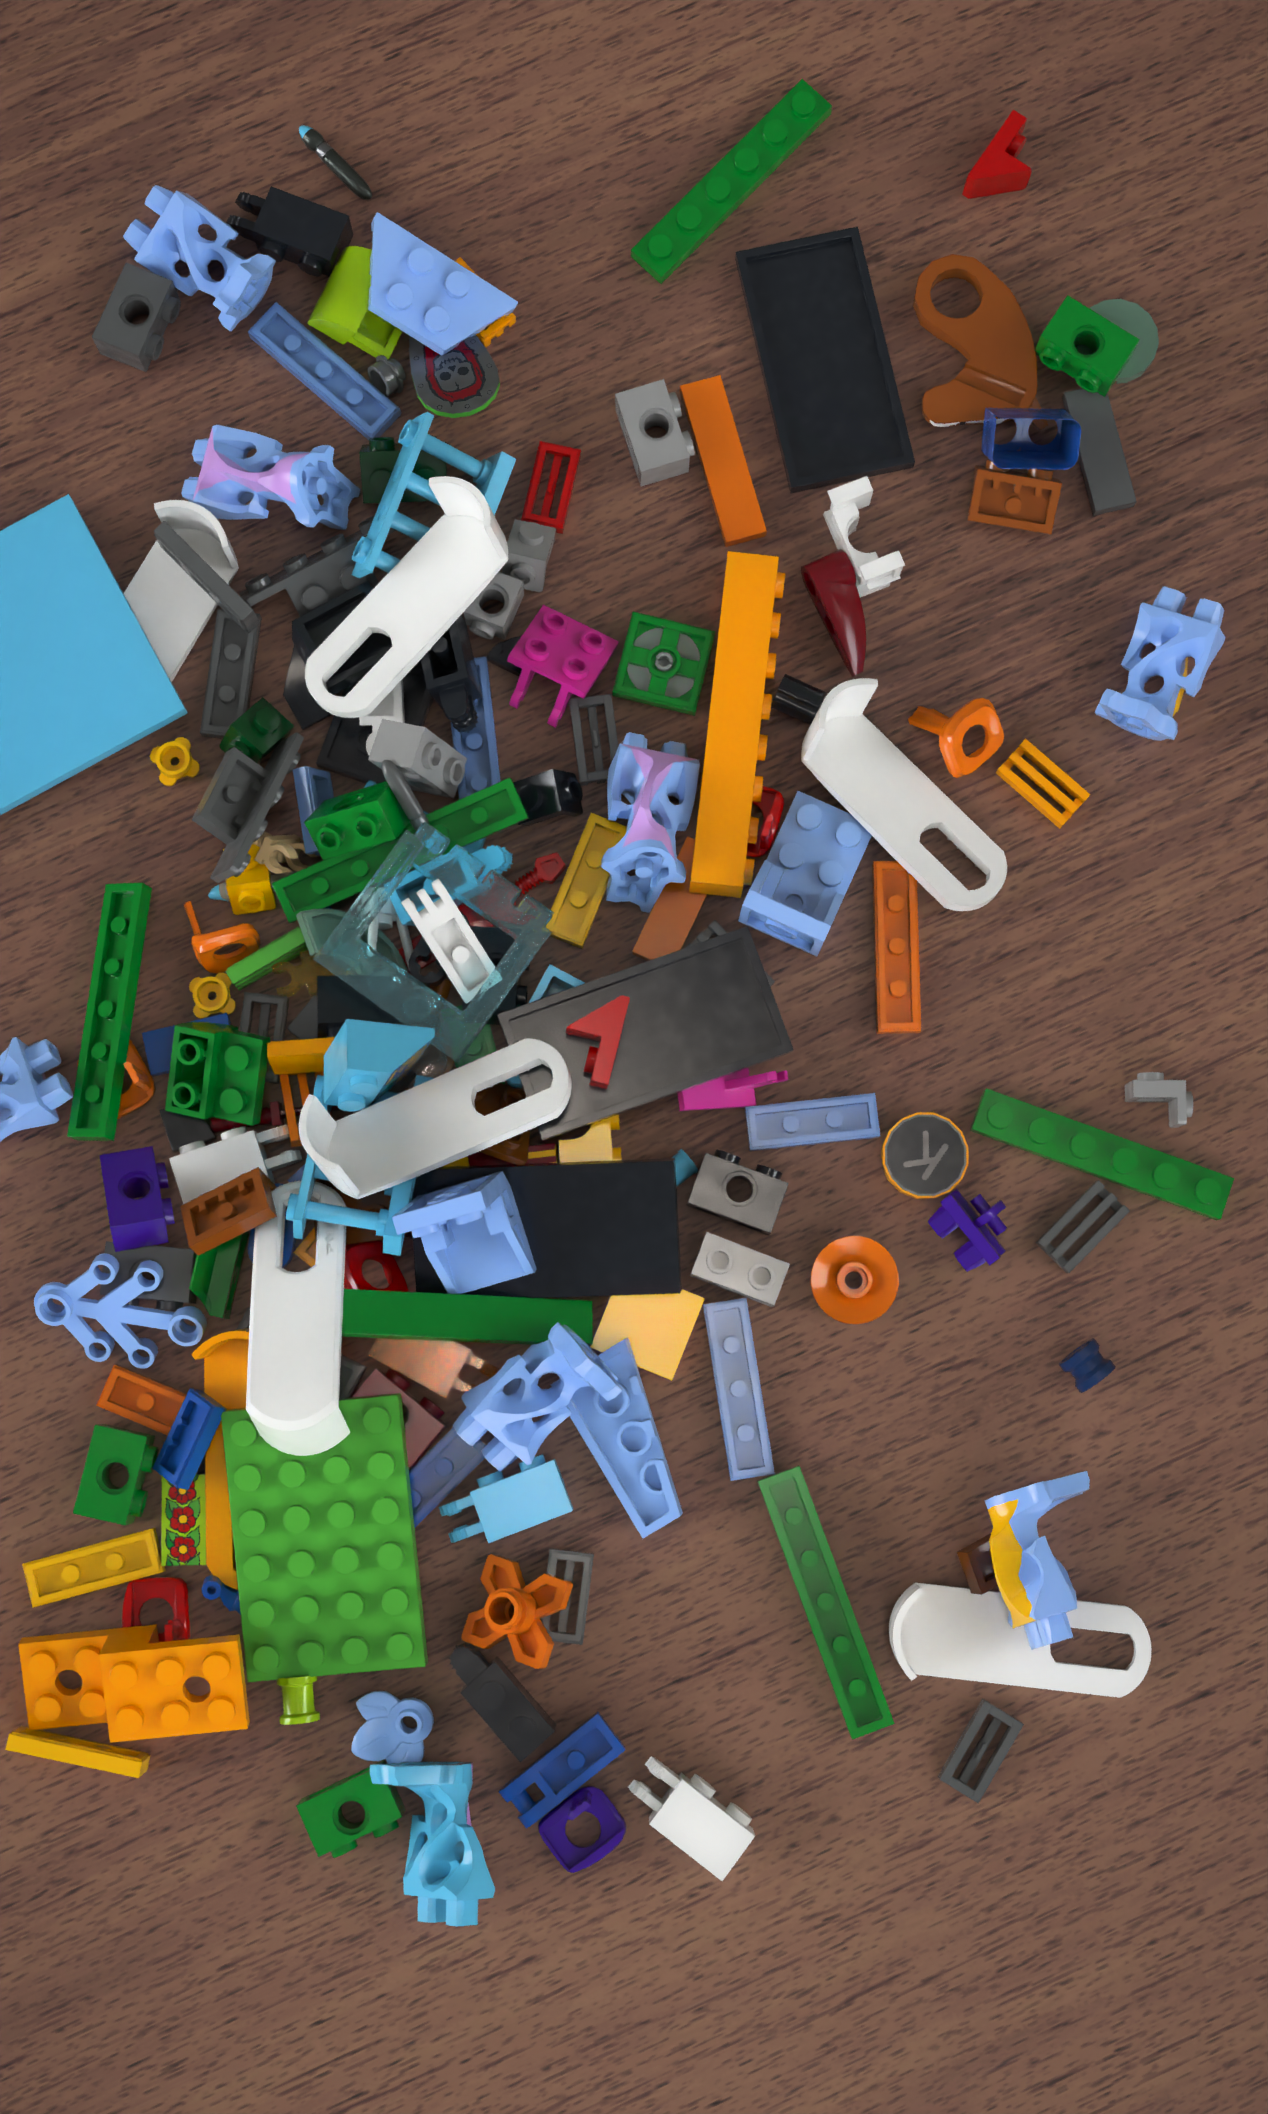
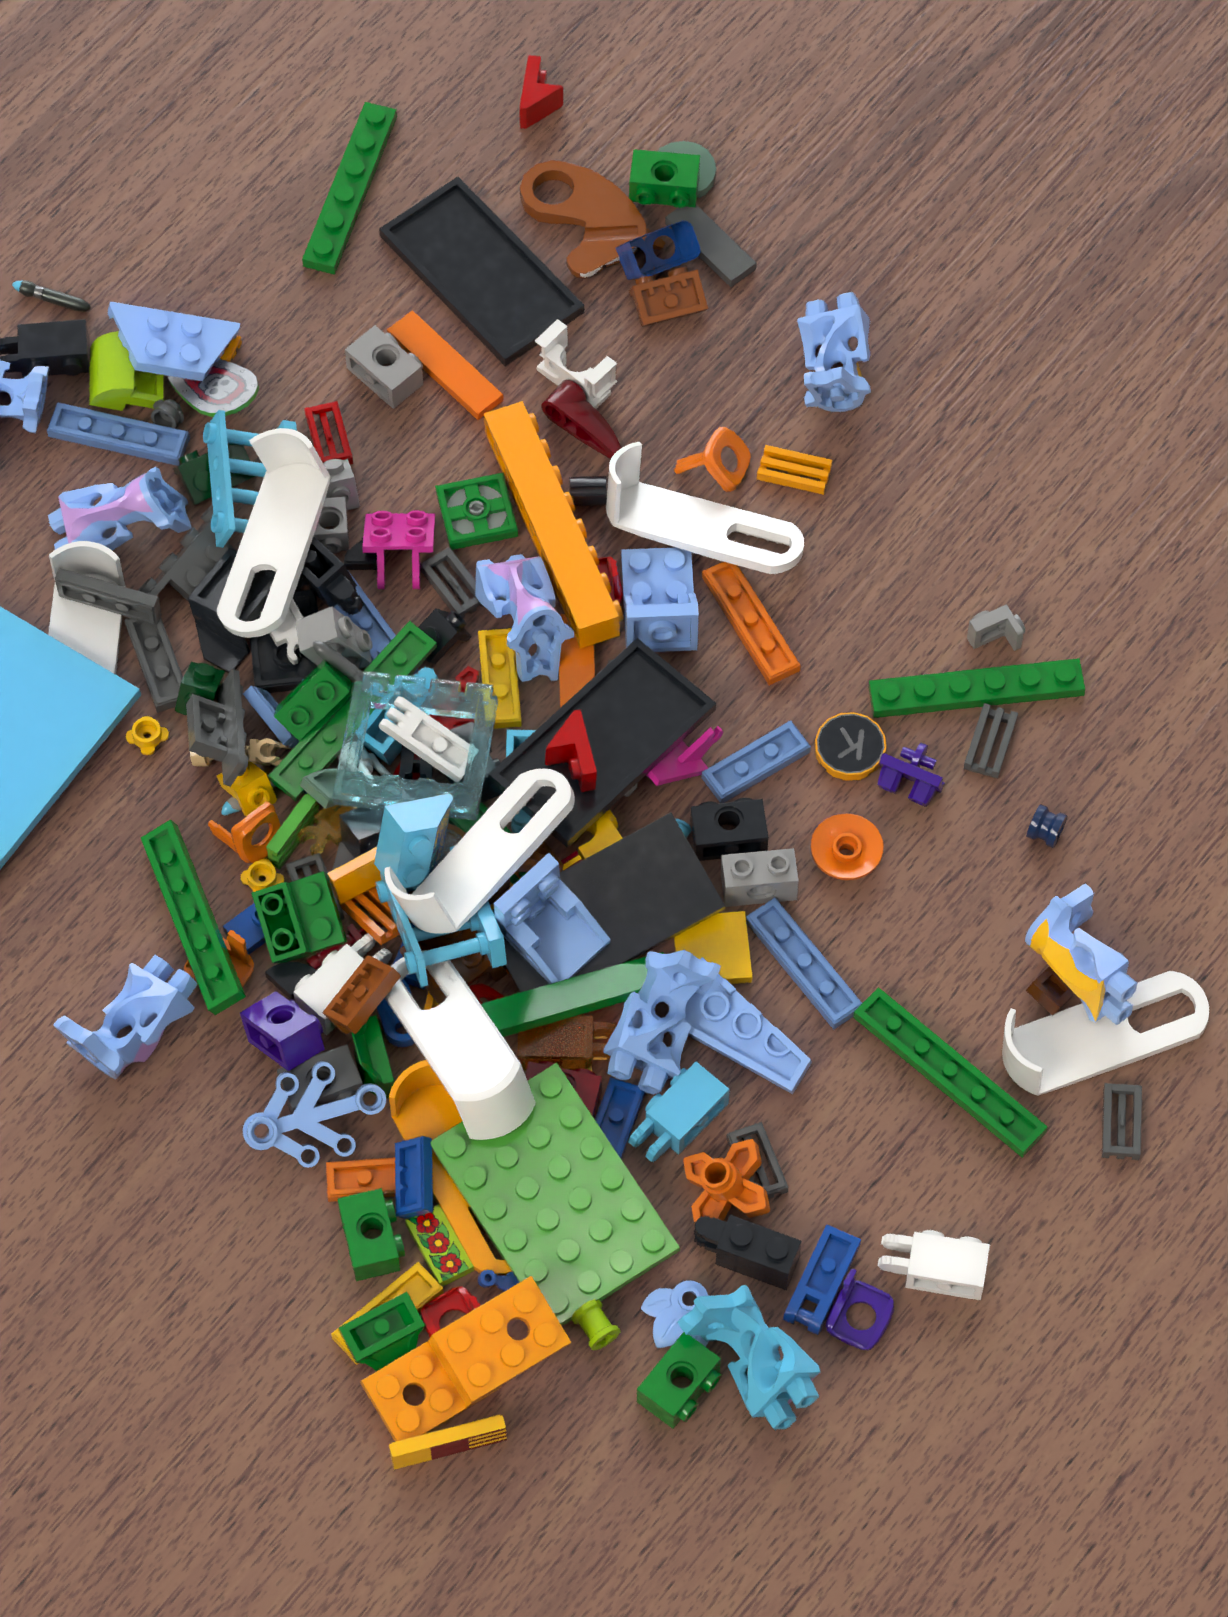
camera: 25 degrees left, 20 degrees down
(69, 1596) = (383, 1332): none -> green slope

